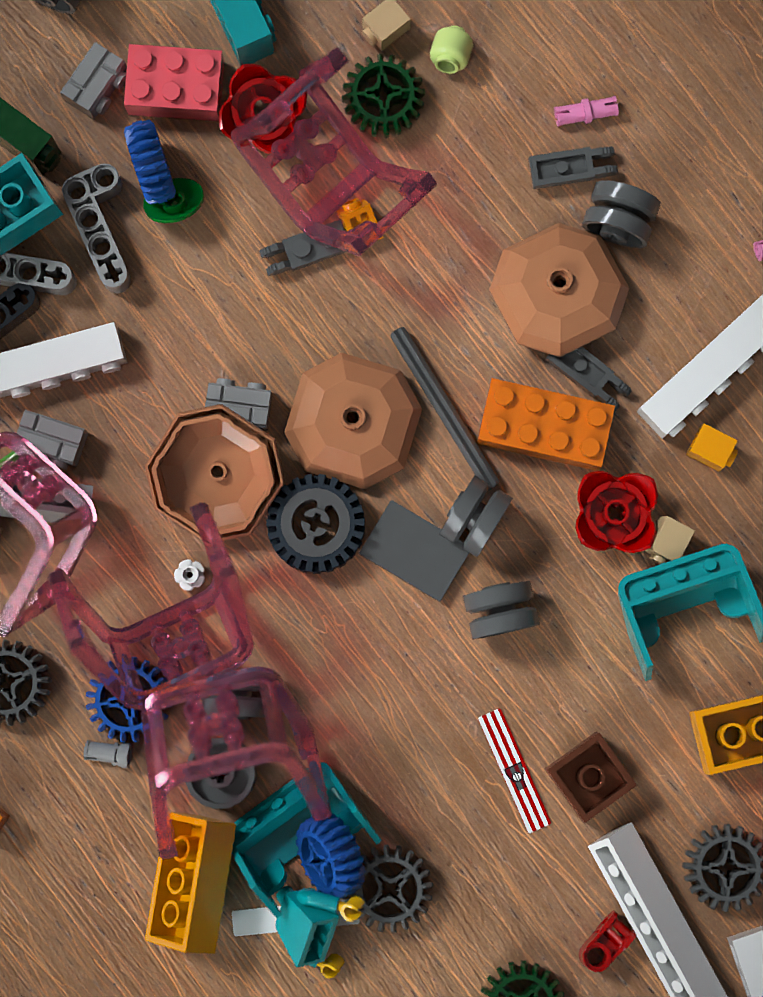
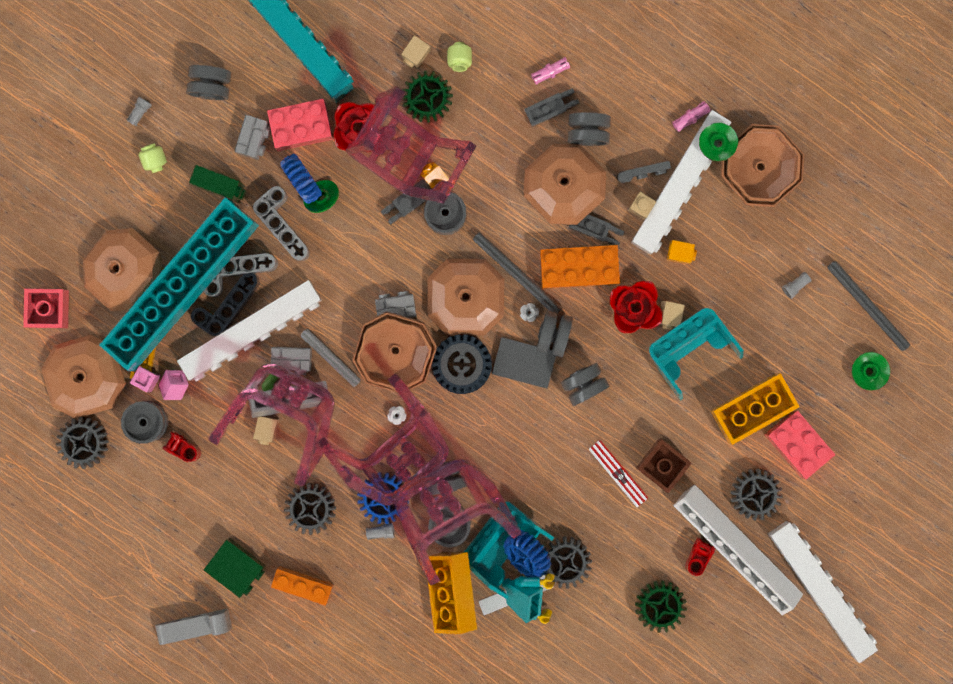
camera: 15 degrees left, 5 degrees up
(113, 455) = (330, 357): none -> light grey axle
(359, 299) = (446, 224): none -> dark grey wheel
(437, 474) = (529, 317): none -> white plate
(670, 357) = (642, 206): none -> tan brick
(685, 305) = (642, 172): none -> dark grey hinge

